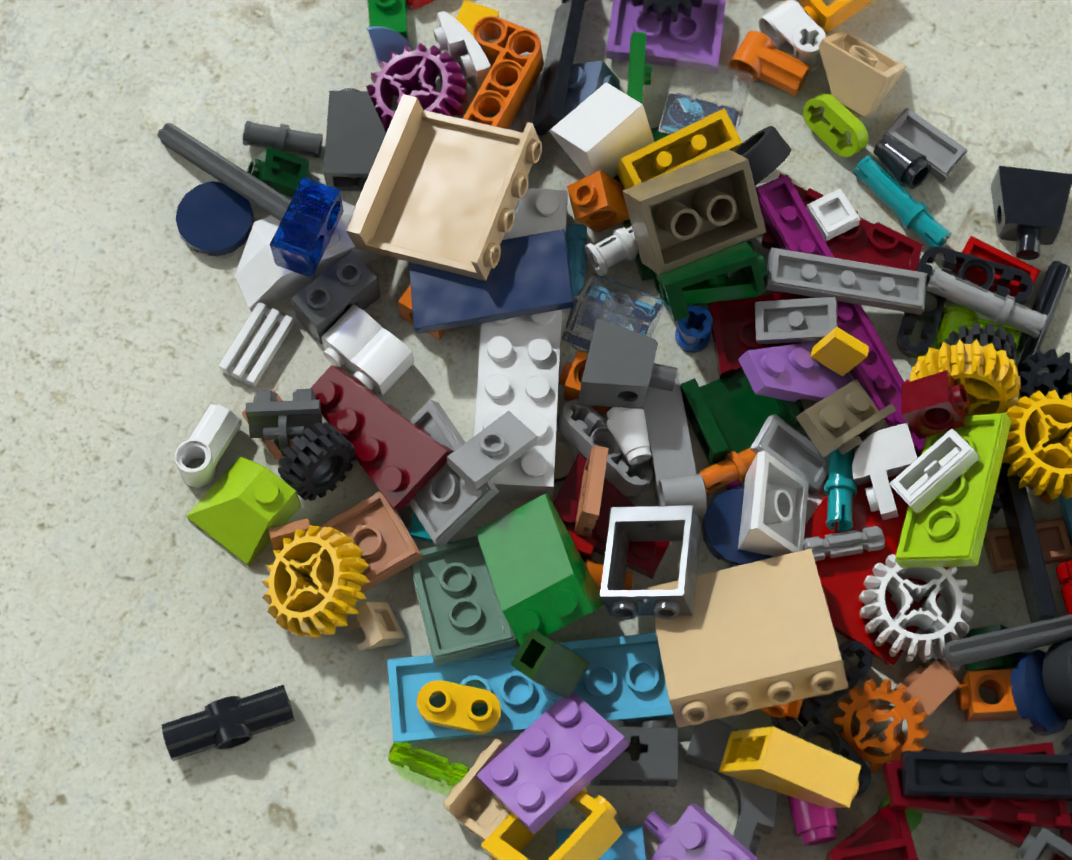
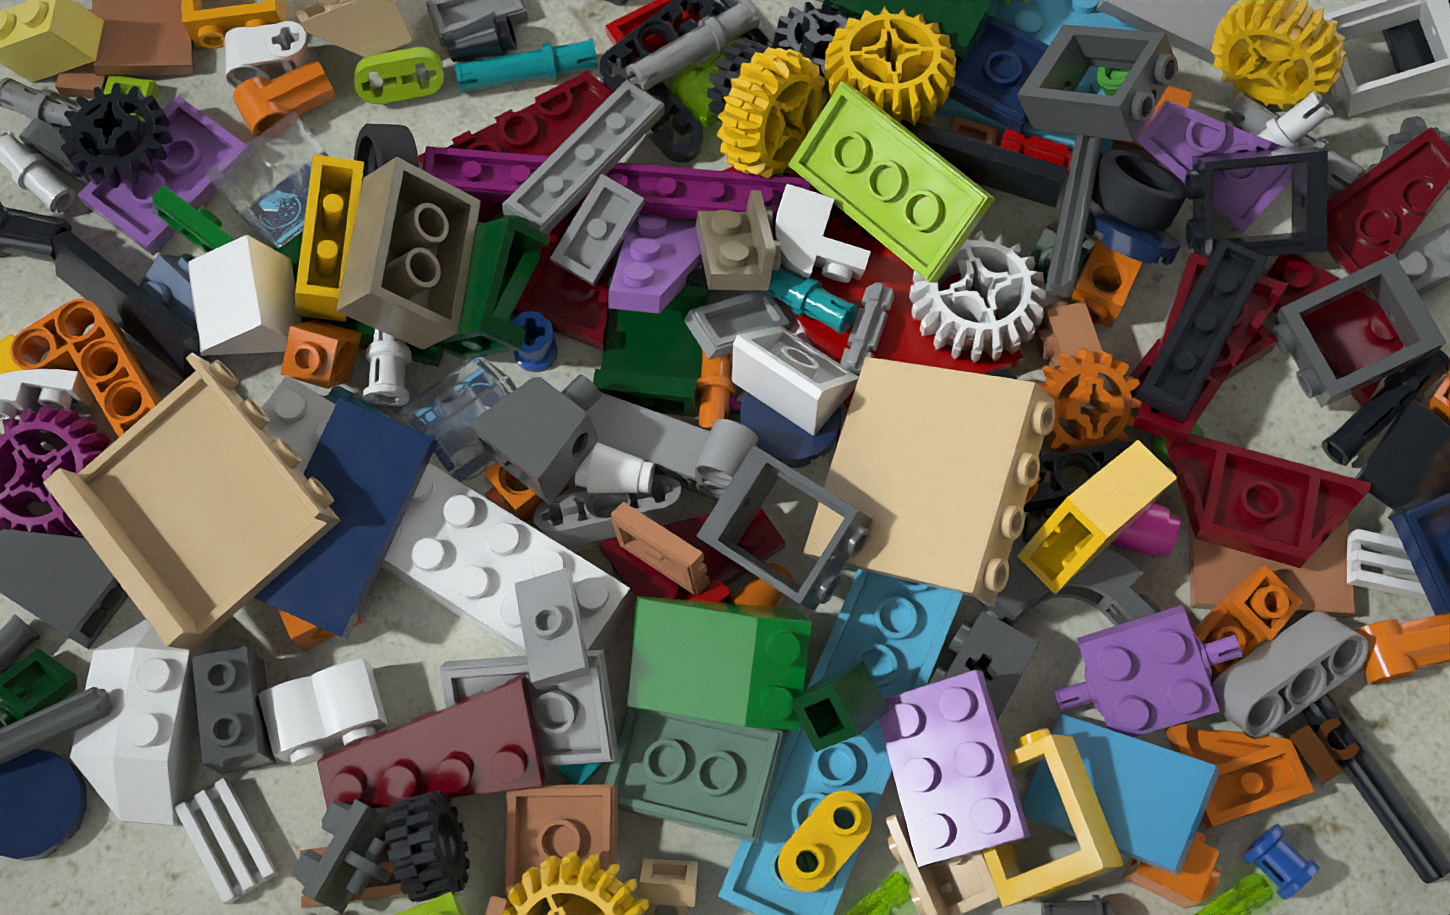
camera: 60 degrees left, 0 degrees up
(307, 227) = (129, 690): clear blue brick -> none
(833, 214) = (499, 129): white tile -> none
(839, 351) = (661, 206): yellow tile -> none
(934, 404) = (783, 146): dark red brick -> none
(938, 474) = (874, 185): white tile -> none

